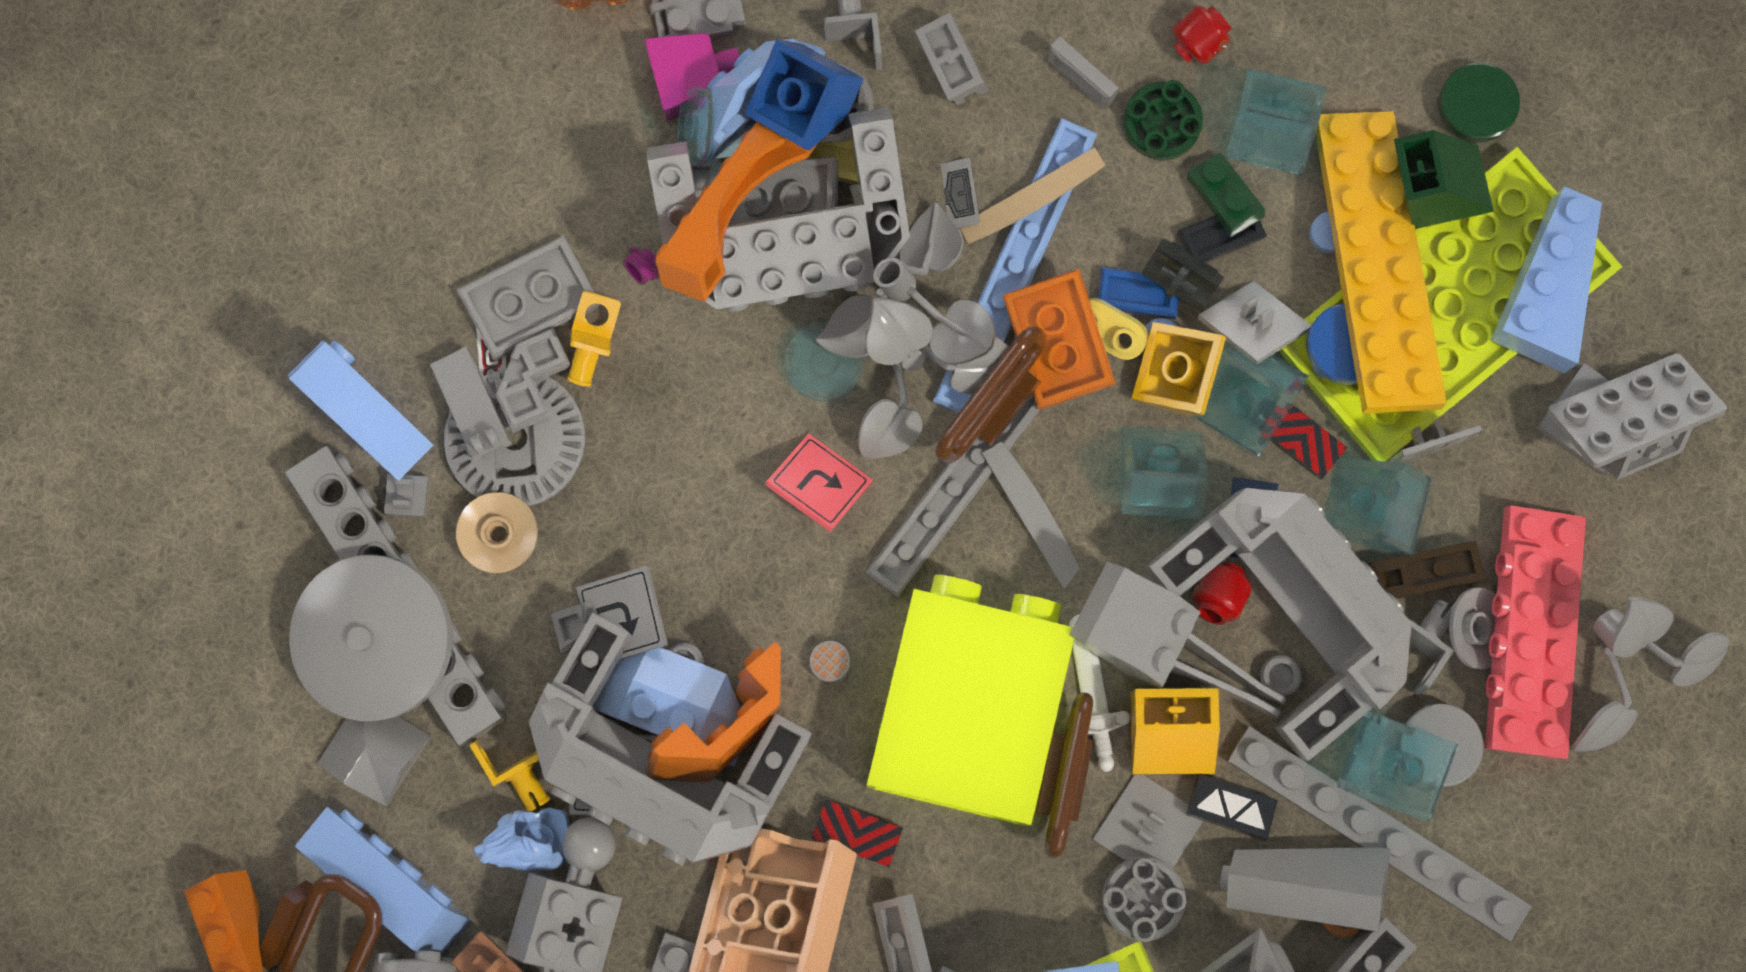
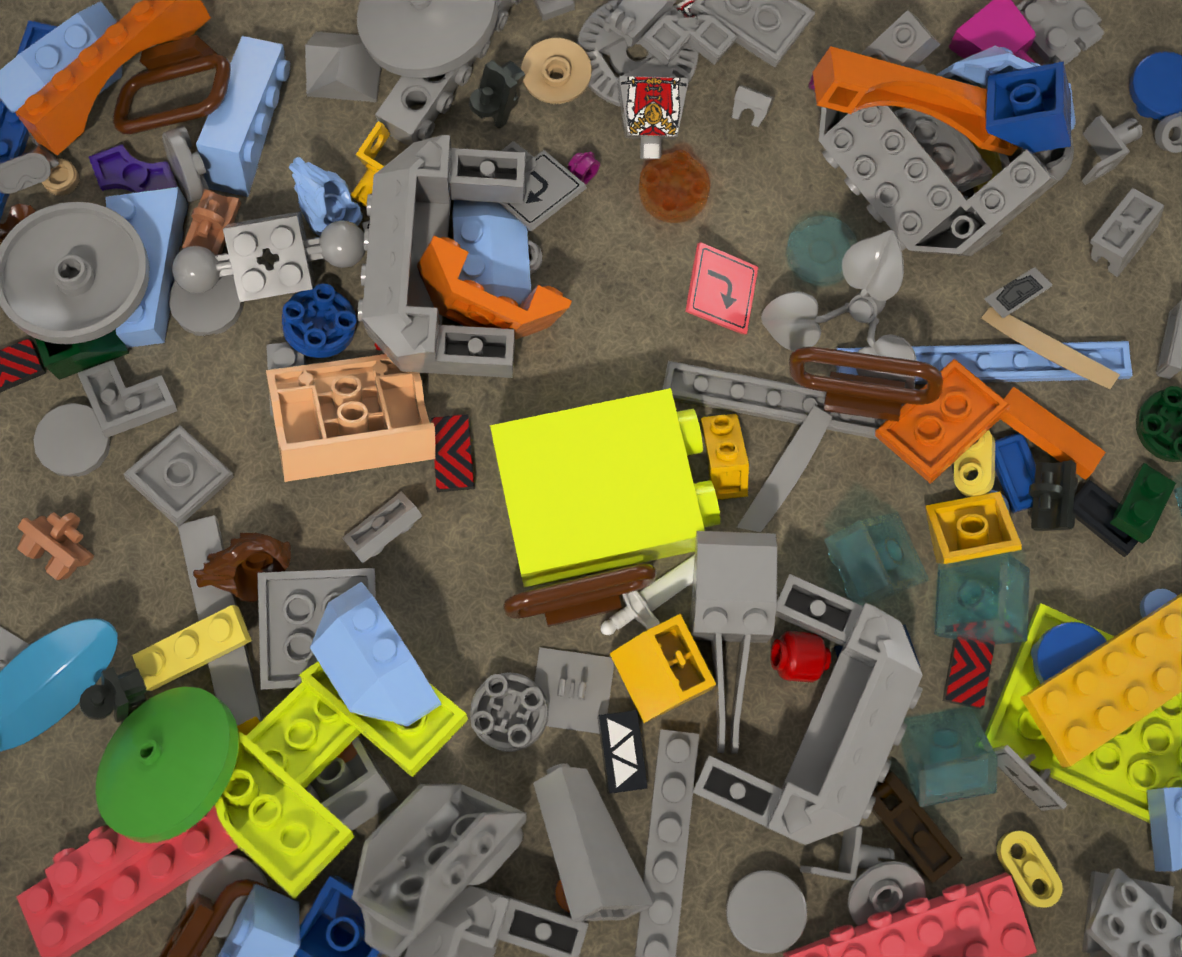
camera: 65 degrees right, 5 degrees down
(497, 607) = (497, 92): none -> pearl dark grey hips
(590, 339) = (744, 67): yellow bracket -> none
(594, 457) = (651, 110): none -> torso
(617, 556) = (584, 166): none -> magenta plate
(631, 346) = (752, 99): none -> light grey tile
(654, 907) = (318, 322): none -> blue tile
(683, 474) = (674, 187): none -> clear orange tile
(697, 124) = (964, 51): clear light blue tile -> none
(830, 661) = (581, 367): tile -> none
(932, 245) = (960, 288): light grey plant -> none
(989, 563) = (726, 455): none -> yellow bracket
(1117, 241) = (1051, 433): none -> orange tile
(1254, 322) = (1047, 575): light grey piece -> none
(1281, 675) = (756, 742): light grey tile -> none
(1397, 766) = (727, 877): clear light blue slope -> none
(1509, 484) = (1028, 868): none -> light yellow plate

